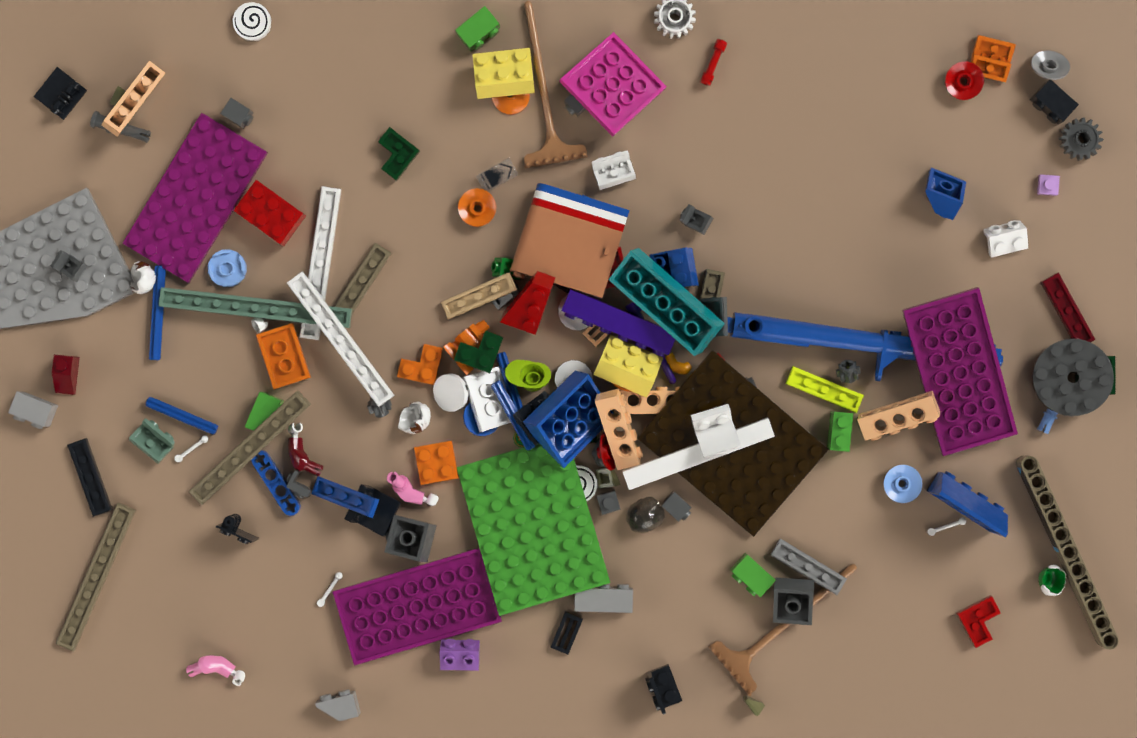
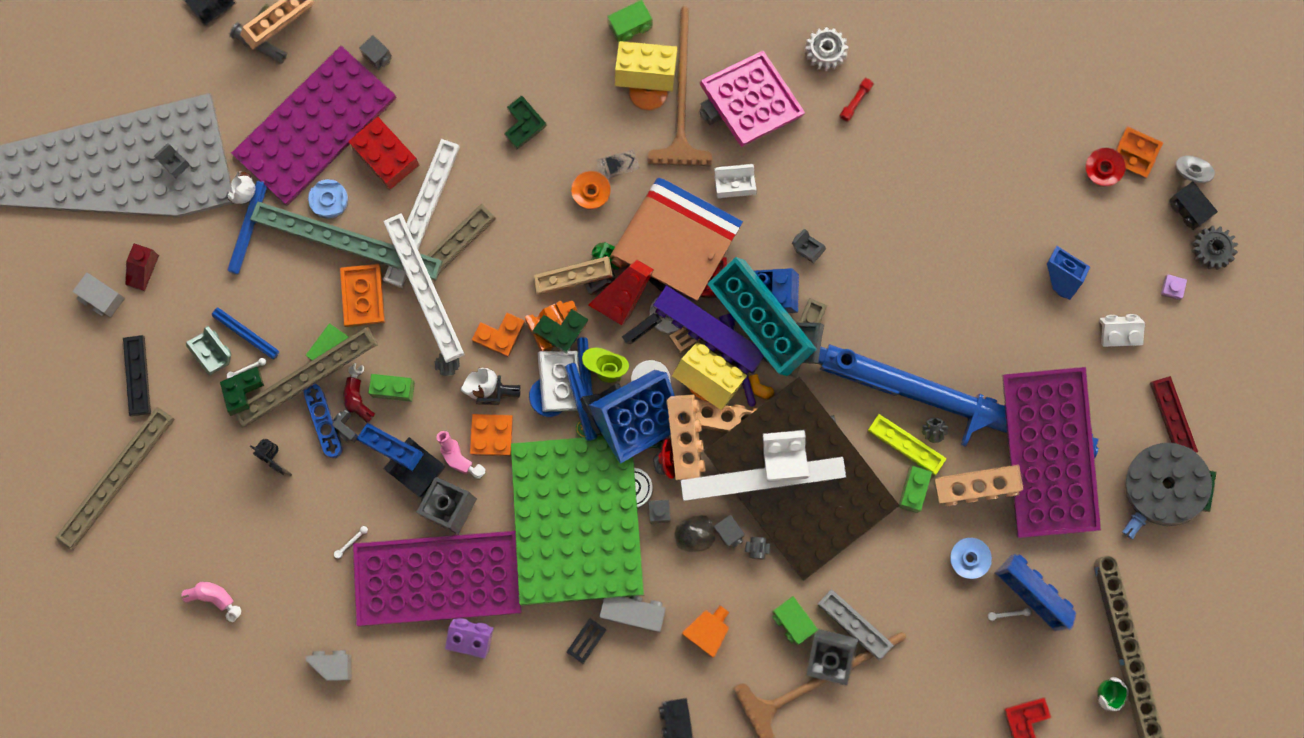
camera: 10 degrees right, 10 degrees down
(187, 469) = (236, 387): none -> dark green plate
(259, 324) = (346, 259): white hinge -> none
(332, 439) = (391, 387): none -> bright green brick
(438, 419) = (501, 391): none -> black bracket
(450, 392) = (522, 365): white tile -> none
(556, 332) = (642, 328): none -> black tile
(606, 478) = (663, 488): olive slope -> none
(675, 601) = (708, 630): none -> orange torso
(705, 516) = (757, 548): none -> dark grey gear

